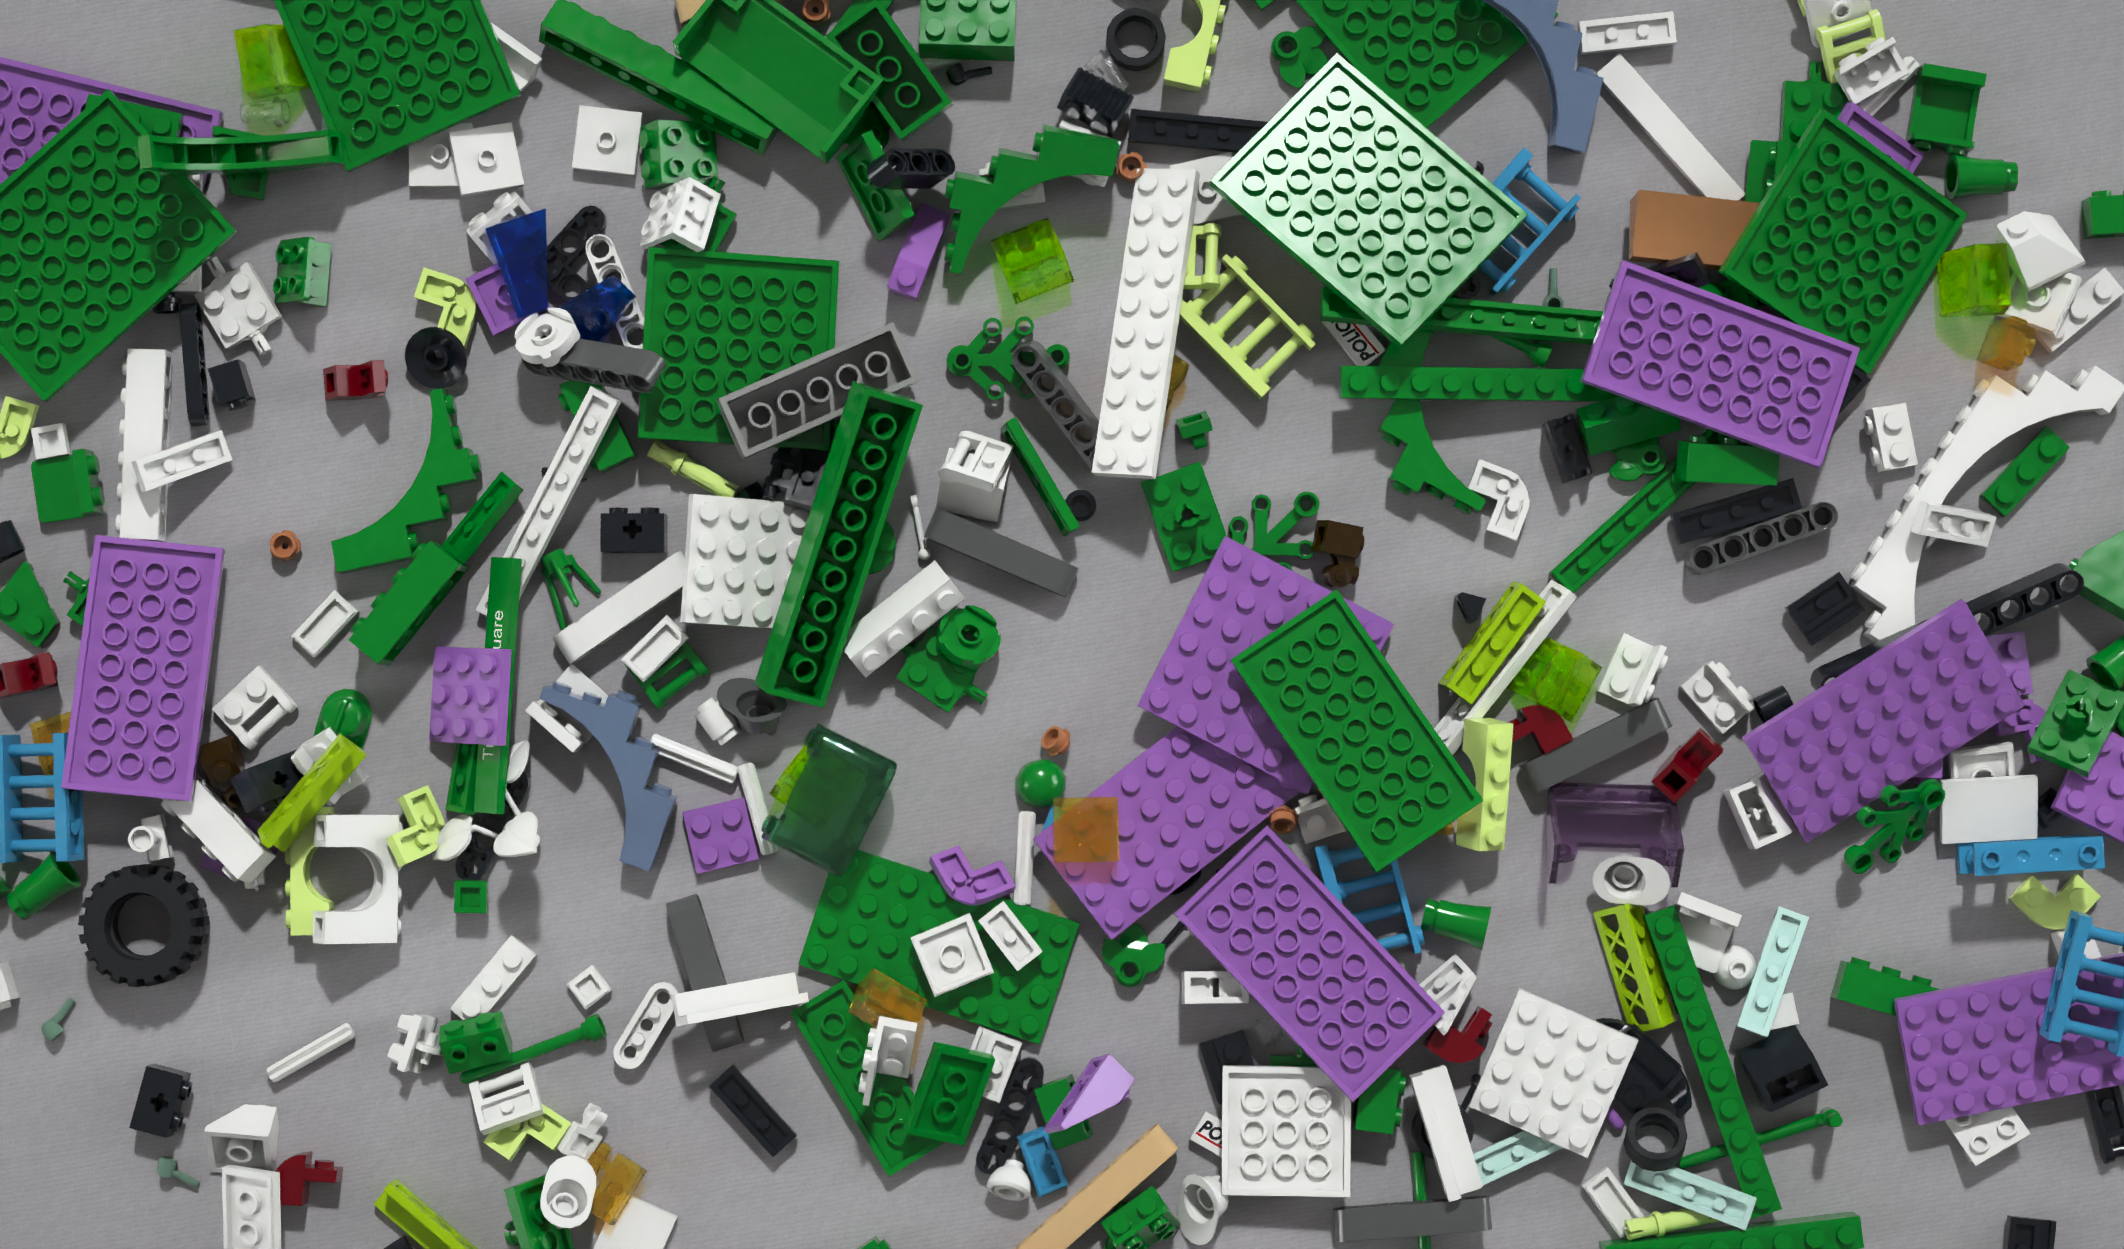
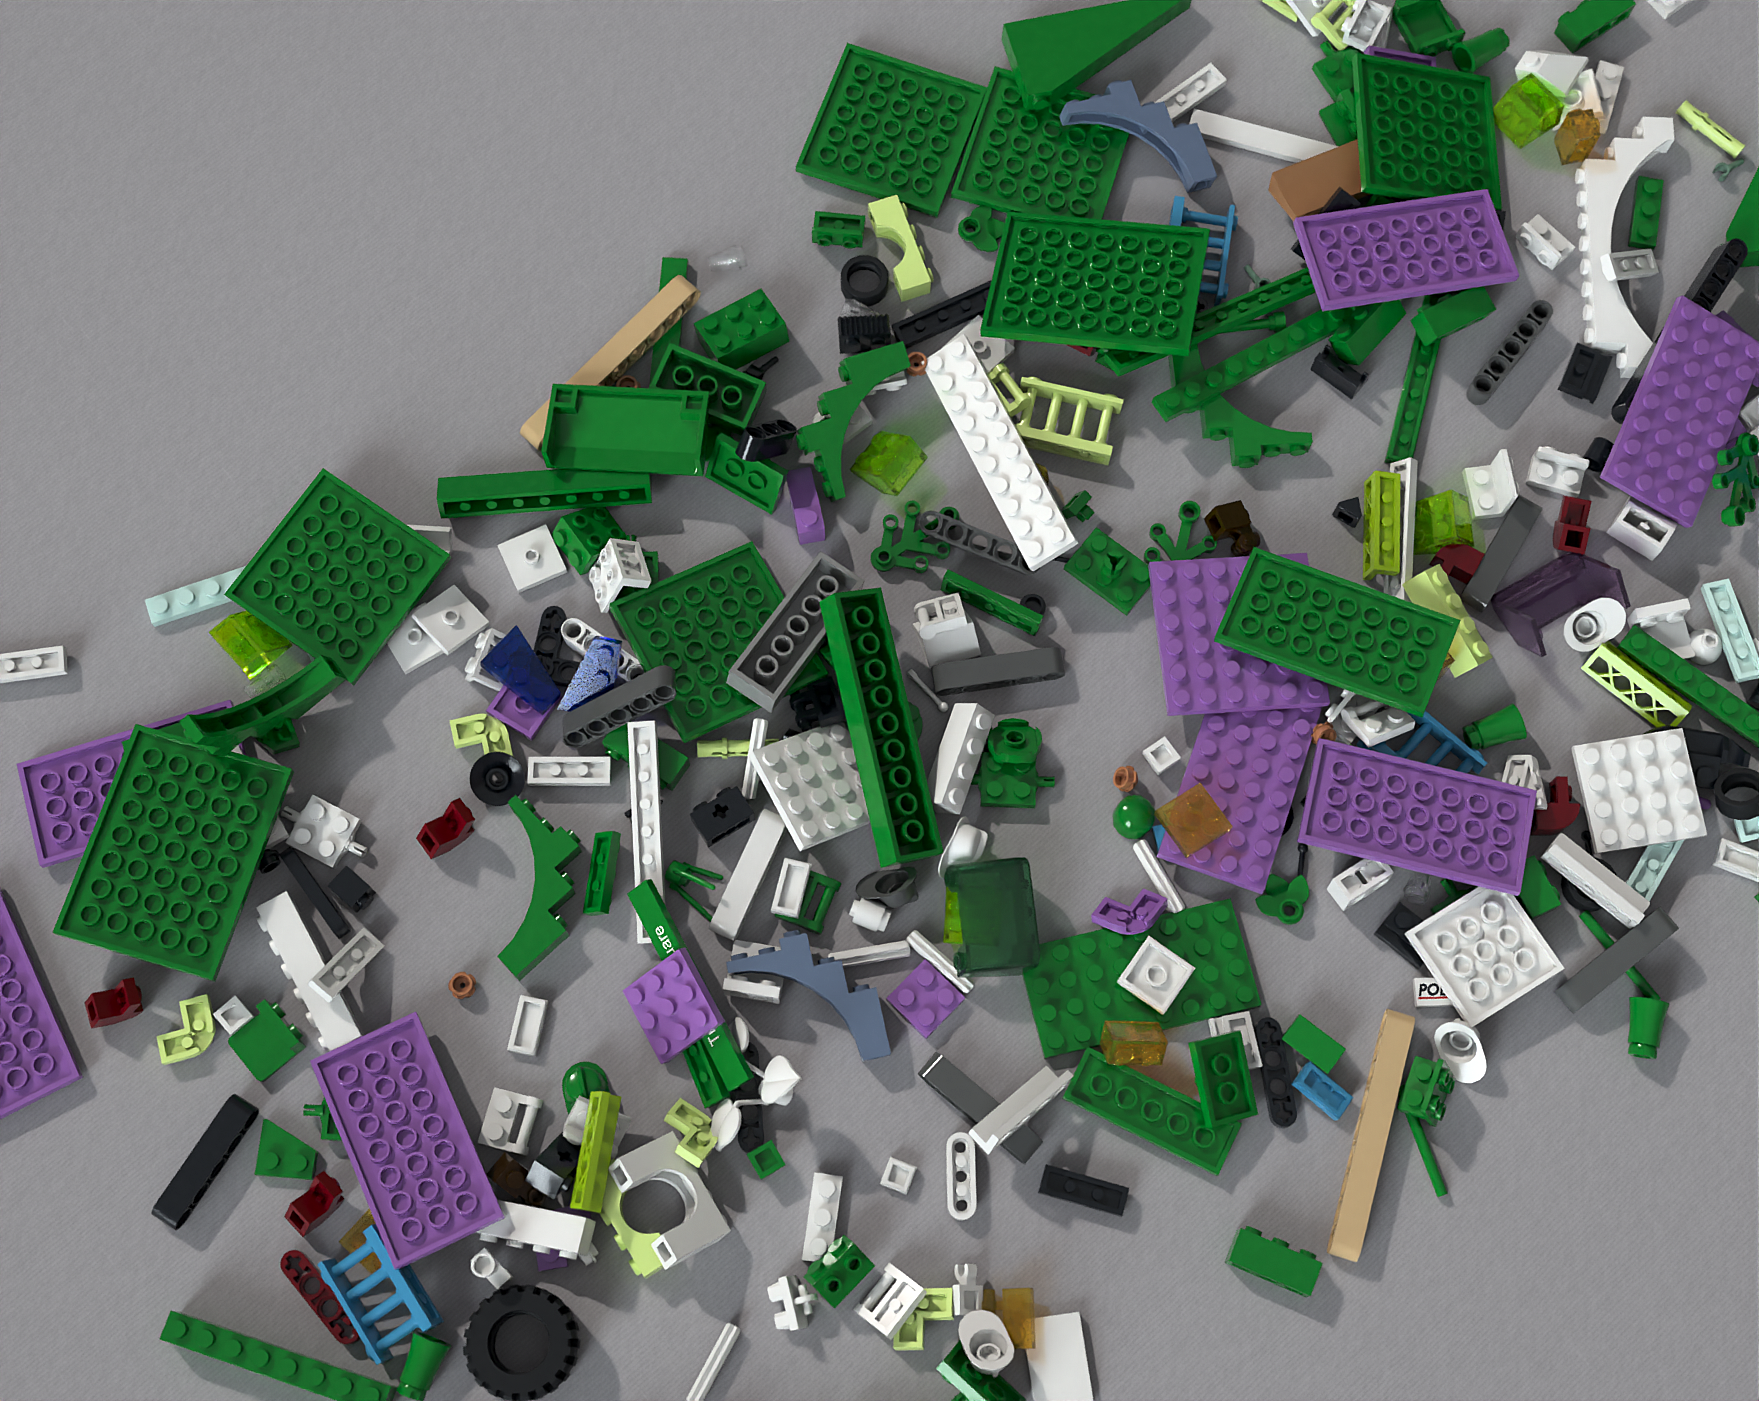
camera: 35 degrees left, 15 degrees down
(302, 271) = (358, 777): green bracket -> none
(408, 603) = (584, 965): green brick -> none
(512, 392) = (569, 771): none -> white plate
(560, 338) = (572, 710): white plate -> none
(591, 1029) = (920, 1207): green piece -> none
(705, 487) = (757, 741): none -> white axle
(848, 714) = (964, 847): none -> white piece
(890, 1053) = (1161, 1074): white bracket -> none
(1010, 935) = (1189, 934): white plate -> none
(1010, 1181) = (1310, 1121): white brick -> none
(1097, 1089) = (1327, 1007): slope -> none
(1107, 739) = (1161, 755): none -> white plate
(1331, 848) = (1378, 726): none -> white plate
(1356, 341) = (1142, 385): white tile -> none
(1510, 498) = (1325, 426): white plate -> none
(1632, 462) = (1388, 354): green plate -> none
(1735, 511) = (1479, 346): black plate -> none

